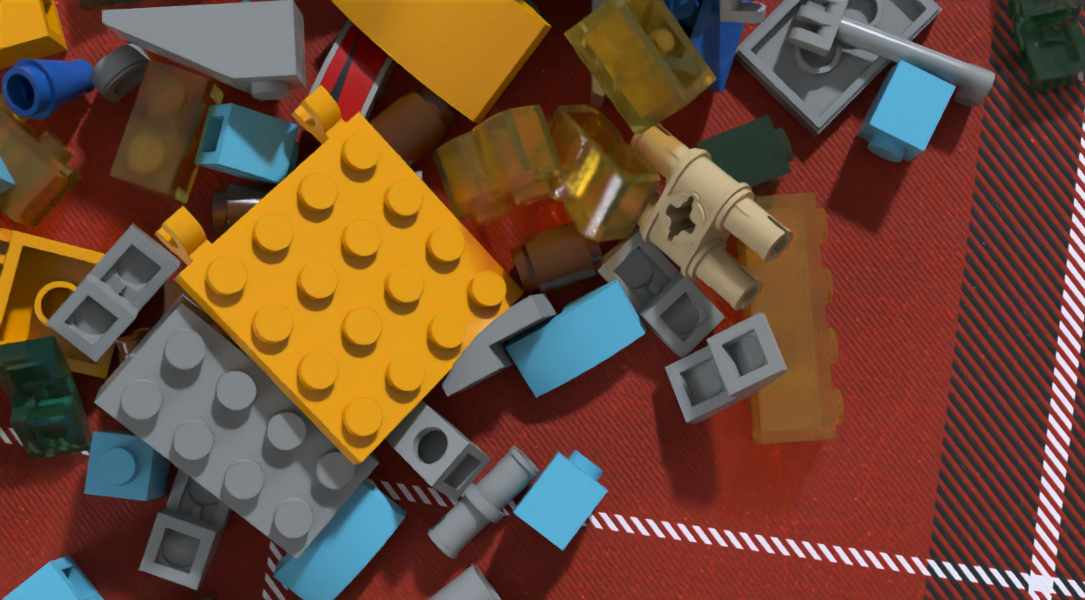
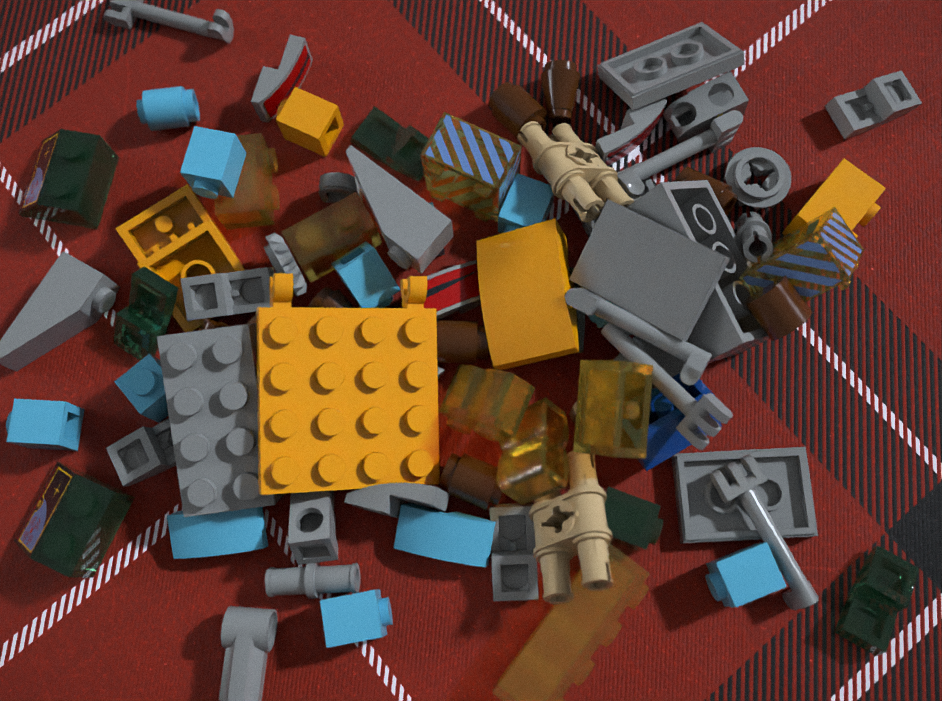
camera: 50 degrees right, 10 degrees down
(43, 86) = (293, 162): blue cone -> none
(136, 204) = (284, 262): none -> light grey gear
(727, 369) = (510, 630): light grey slope -> none

